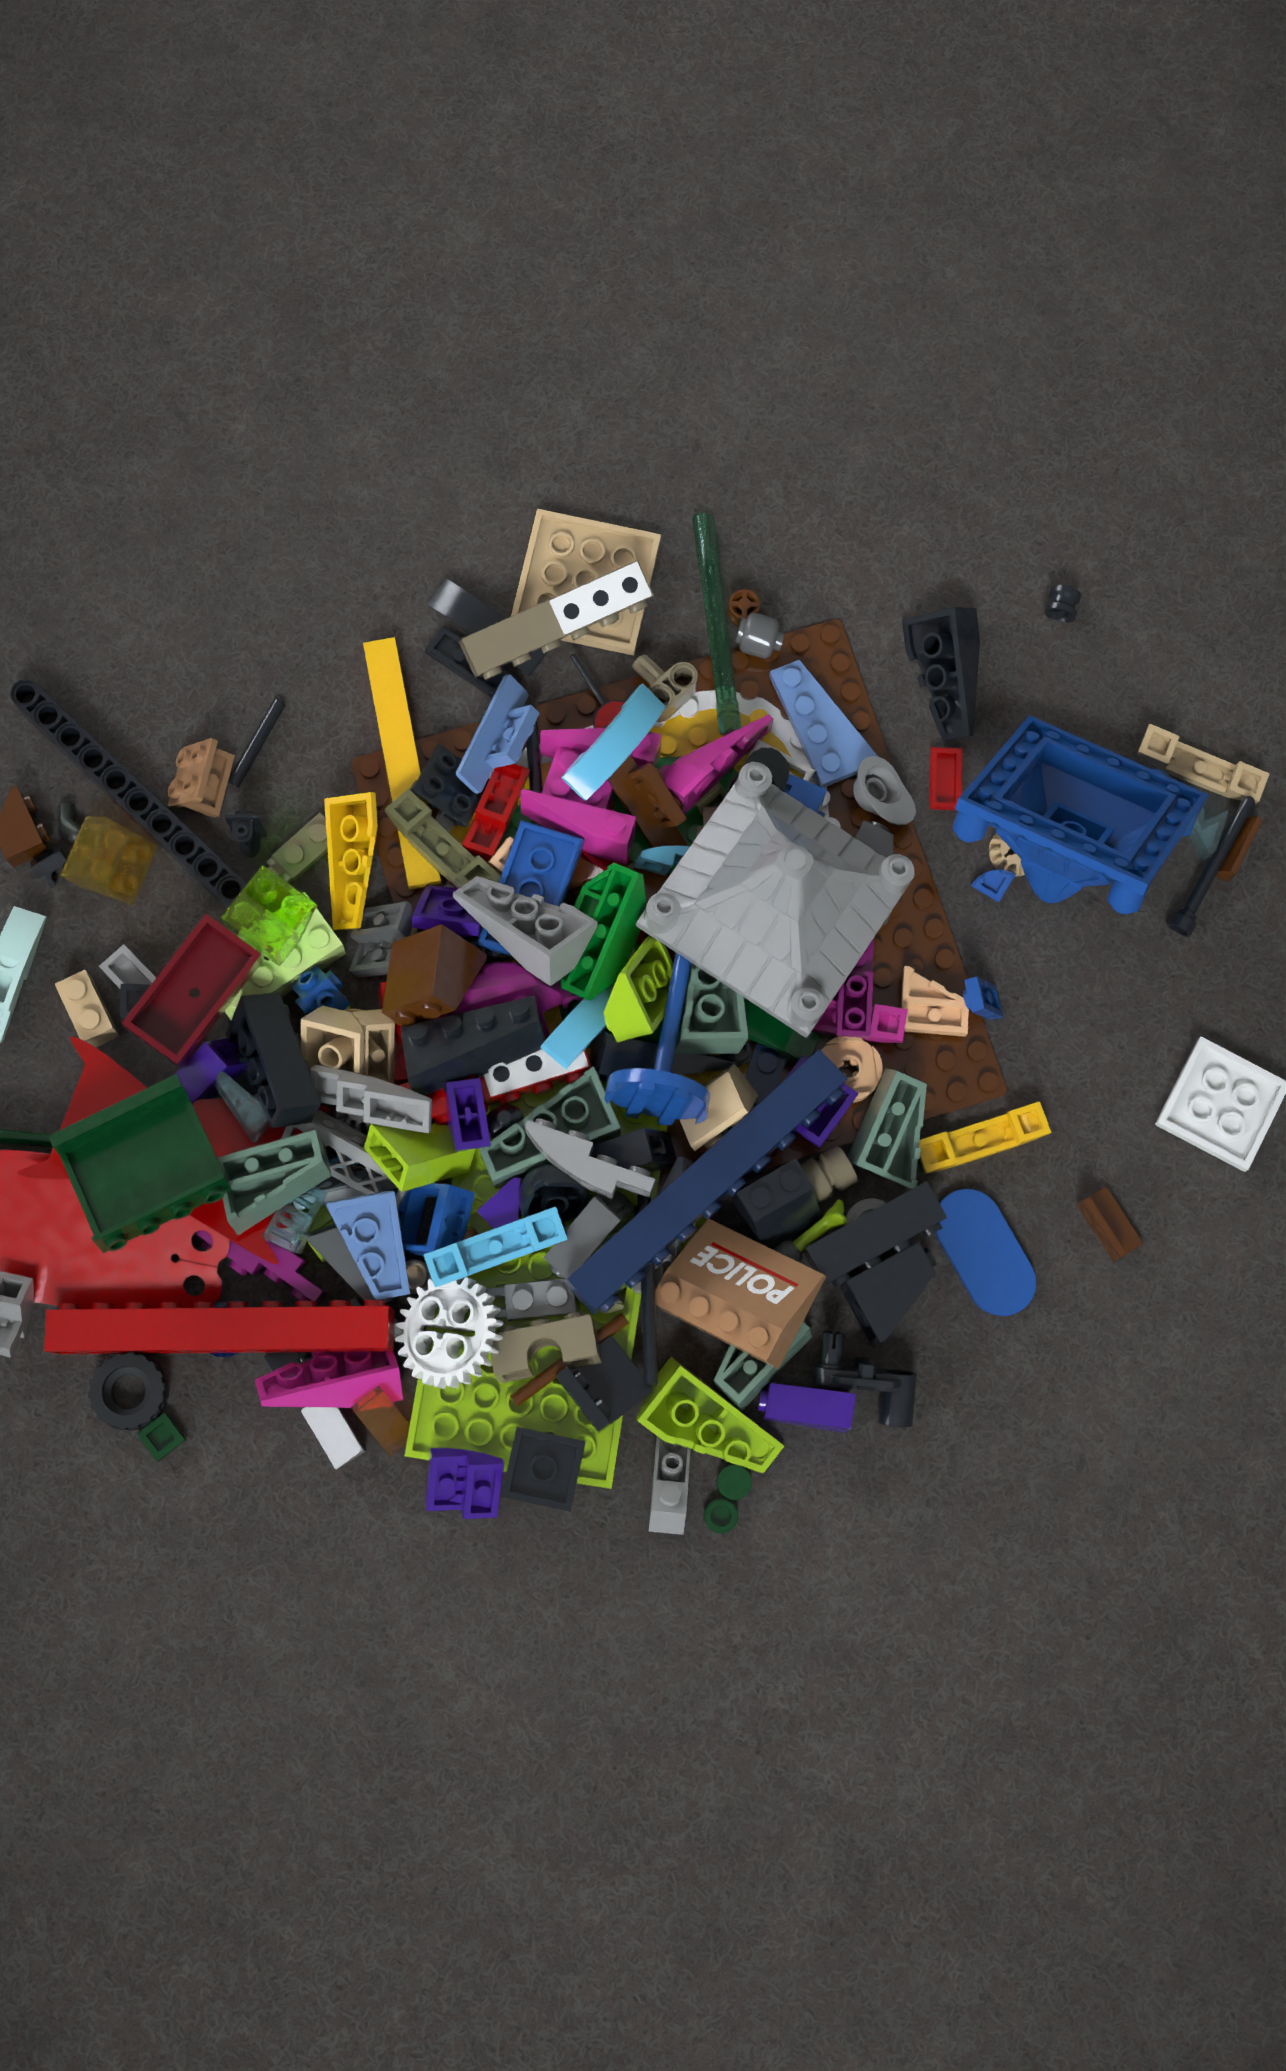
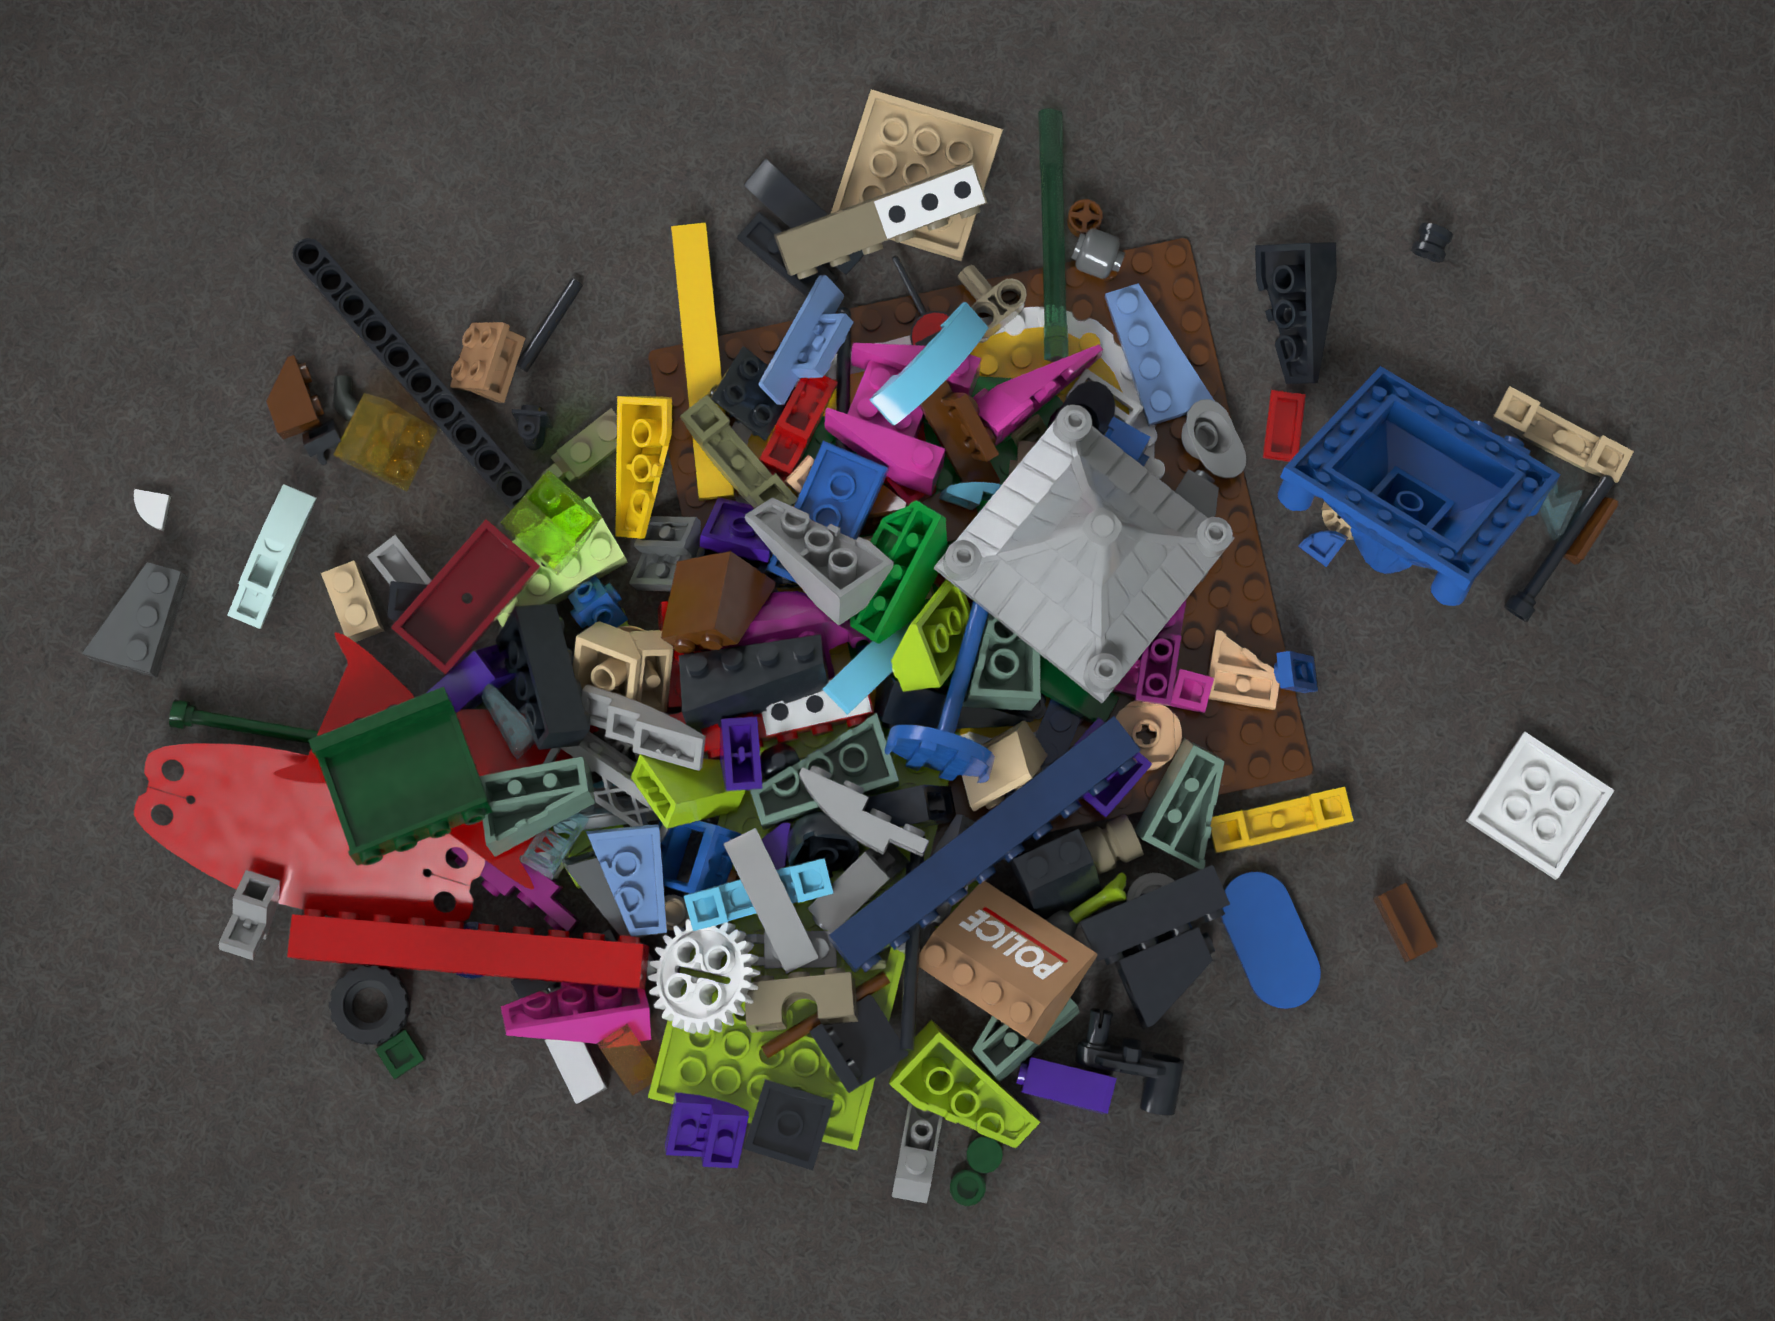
camera: 10 degrees right, 5 degrees up
(508, 1253) = (770, 900): none -> light grey slope

